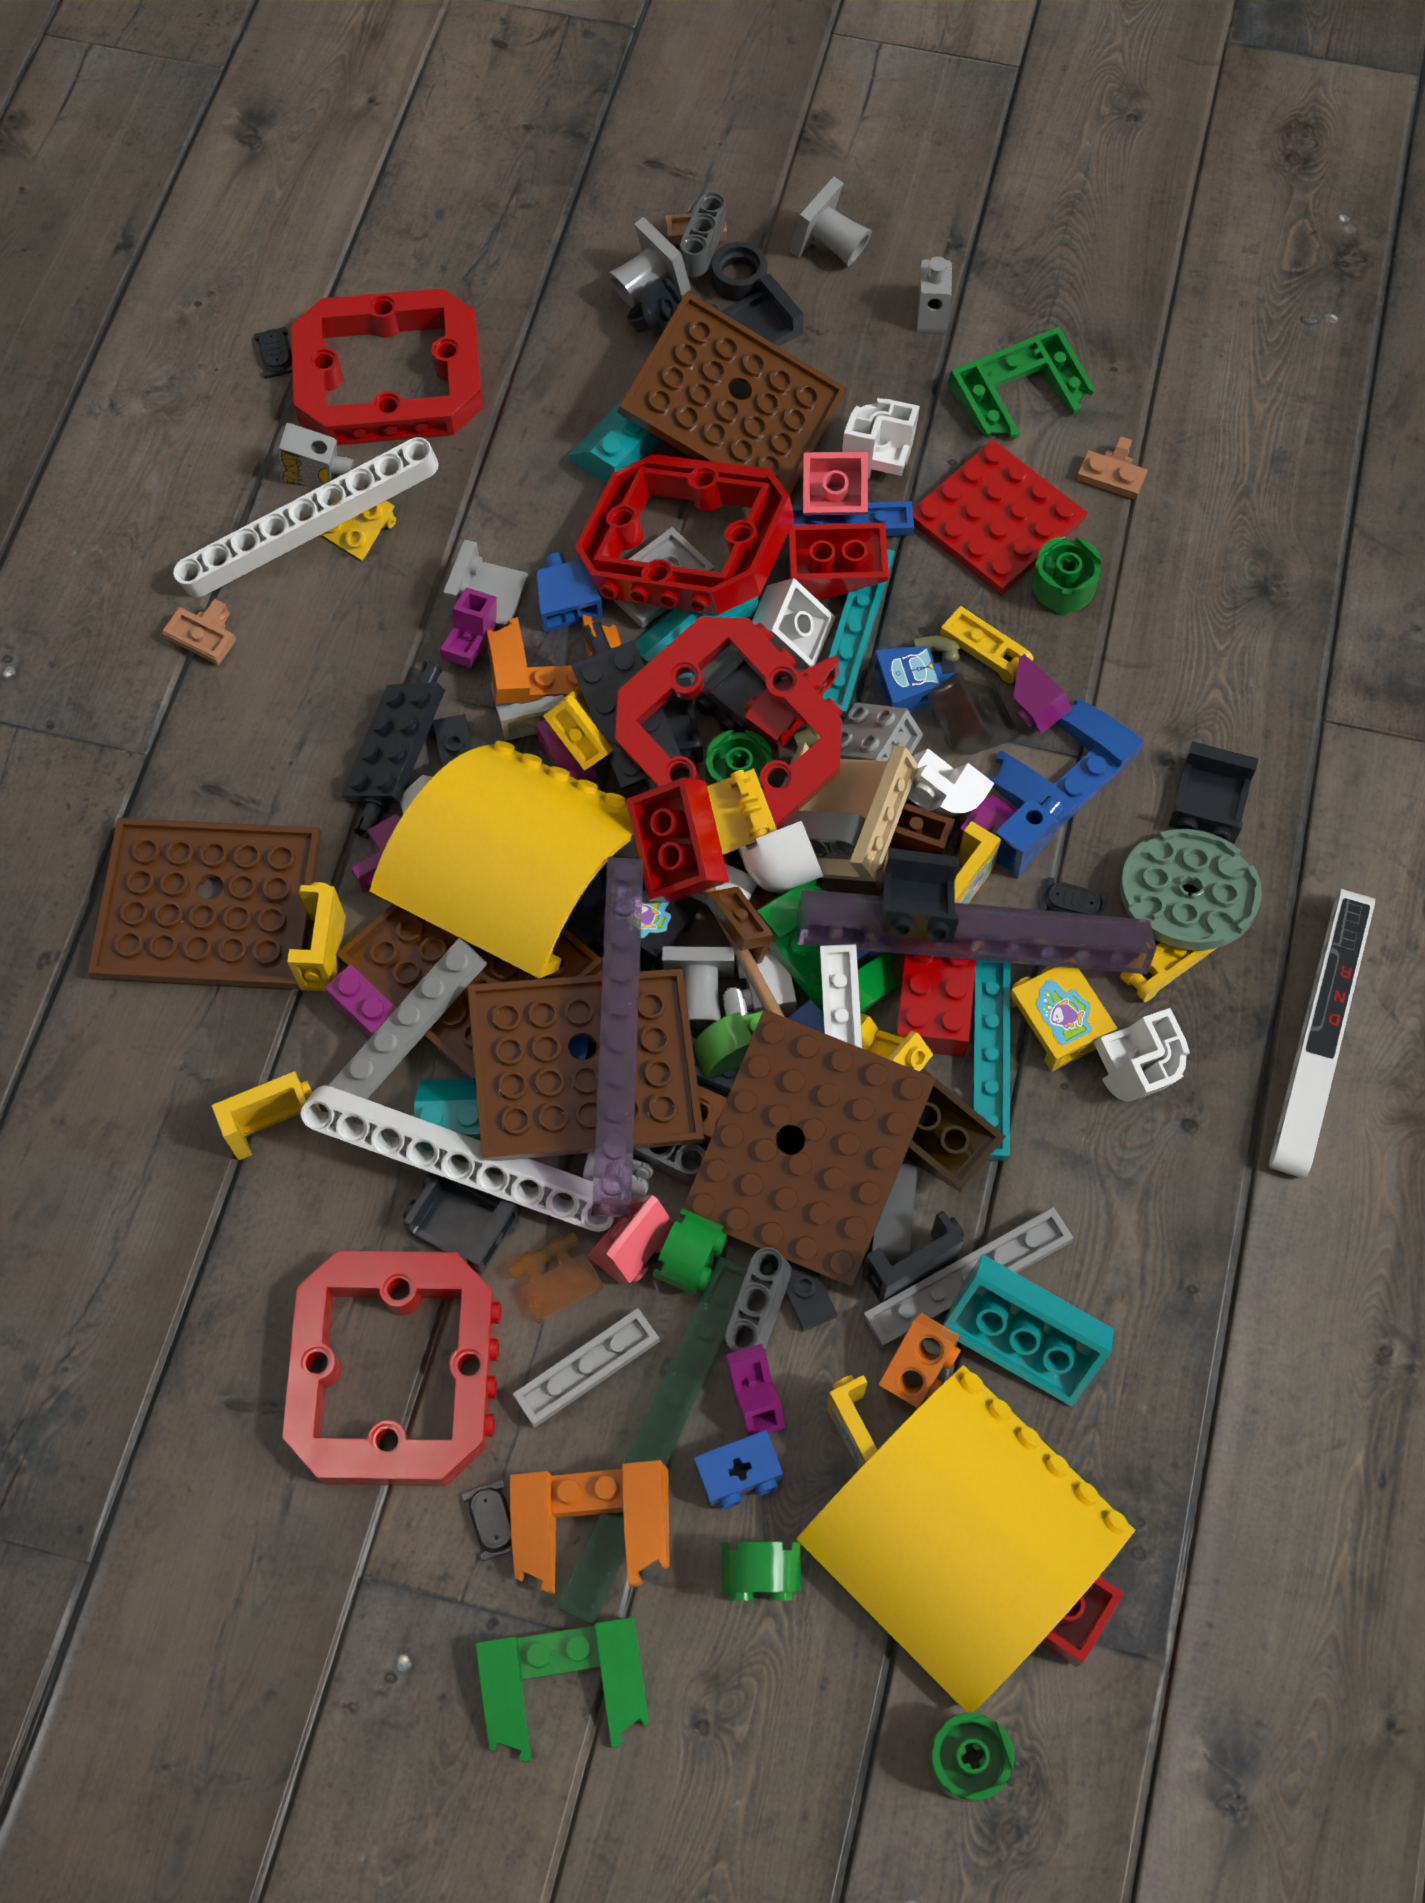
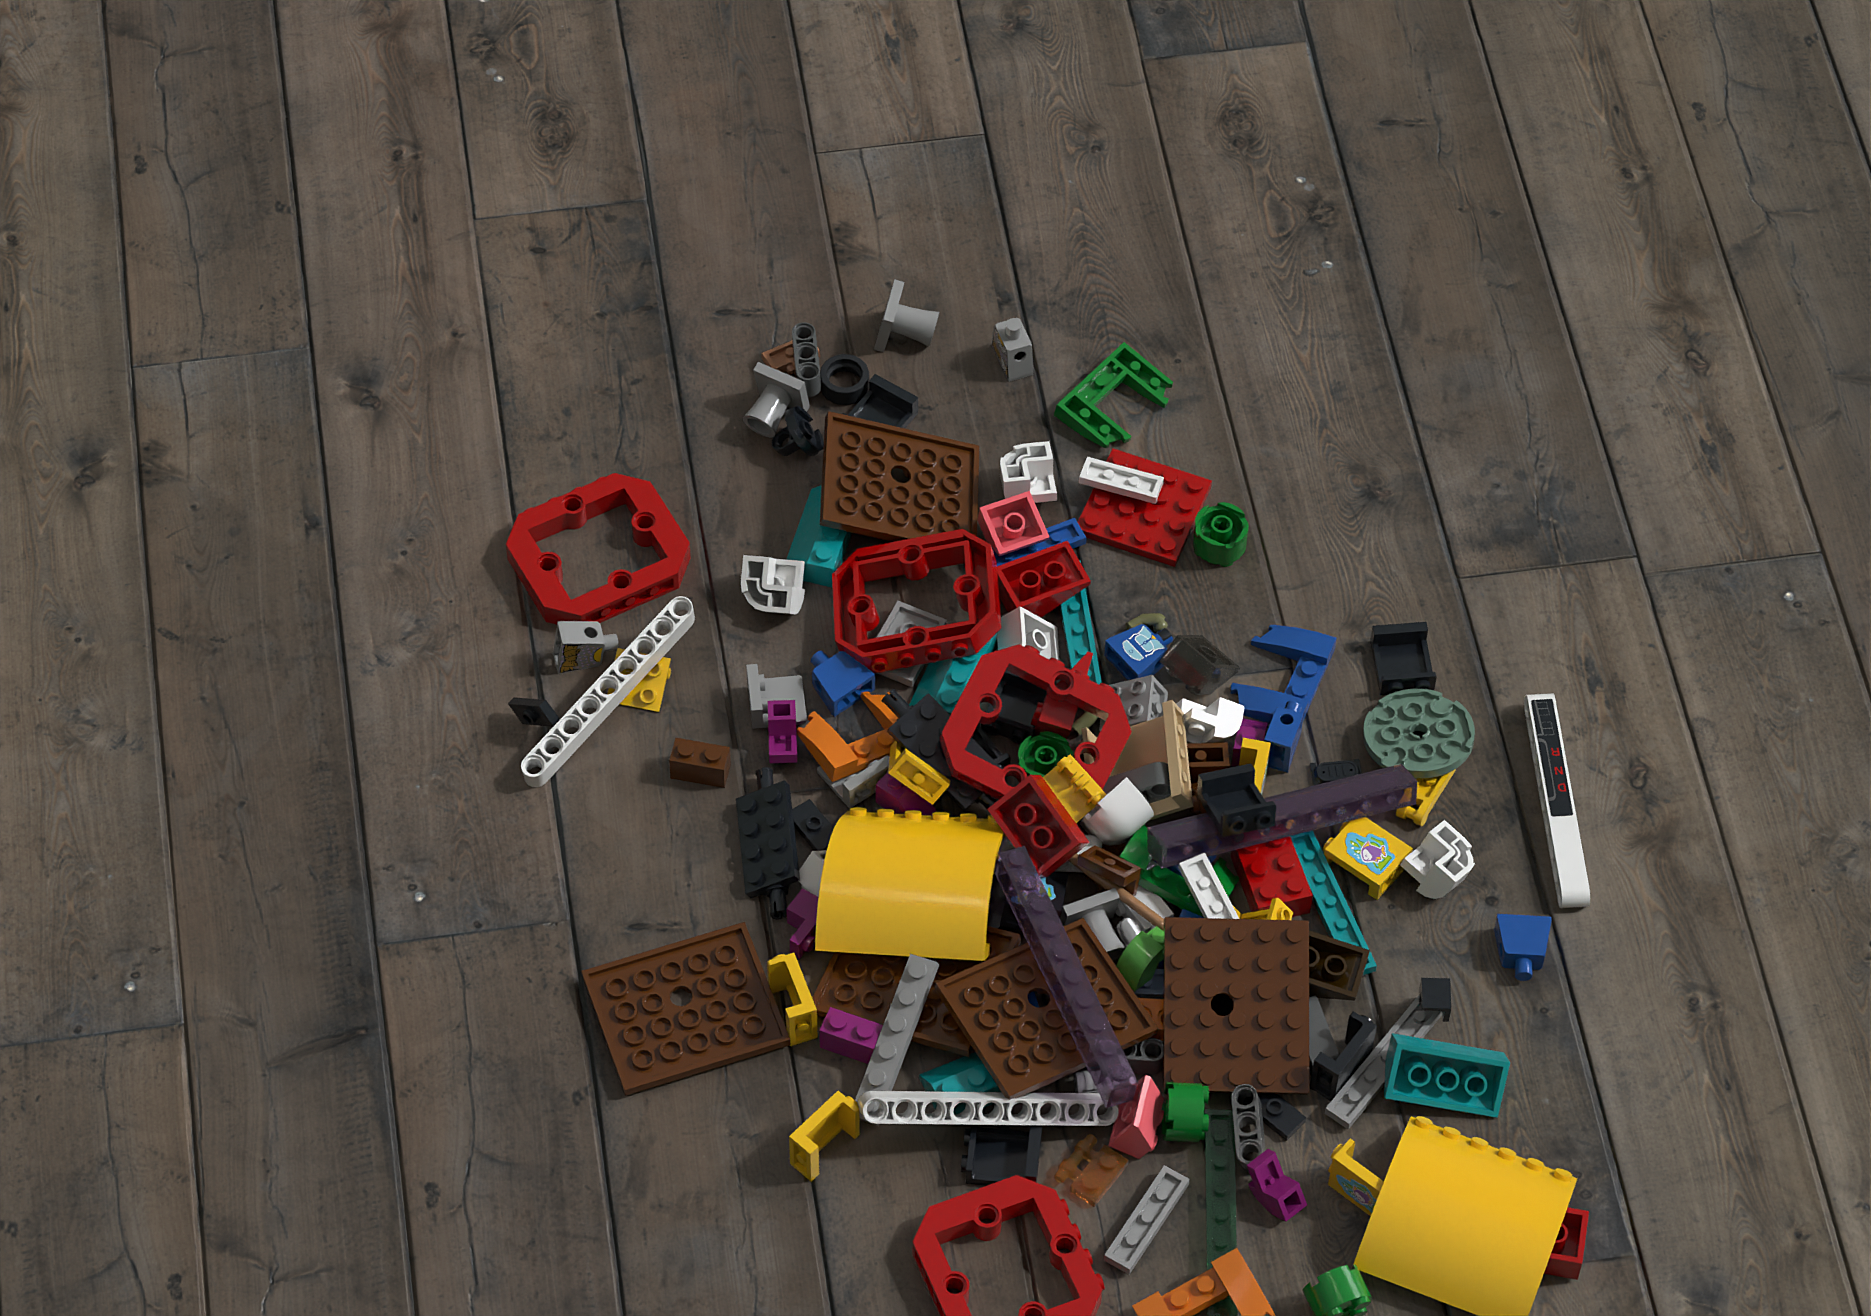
camera: 25 degrees left, 10 degrees down
(202, 632) = (564, 810): nougat hinge -> none
(220, 513) = (534, 711): none -> black plate
(275, 352) = (494, 570): black piece -> none
(367, 630) = (700, 762): none -> reddish brown brick
(544, 462) = (773, 584): none -> white brick
(750, 1453) = (1289, 1243): blue brick -> none
(913, 1356) = (1373, 1120): orange brick -> none
(981, 476) = (1121, 480): none -> white plate
(984, 643) = (1184, 607): yellow plate -> none
(1038, 697) = (1243, 632): magenta slope -> none
(1058, 1227) = (1436, 995): none -> black panel
(1113, 471) = (1216, 442): nougat hinge -> none
(1201, 1195) = (1522, 942): none -> blue torso

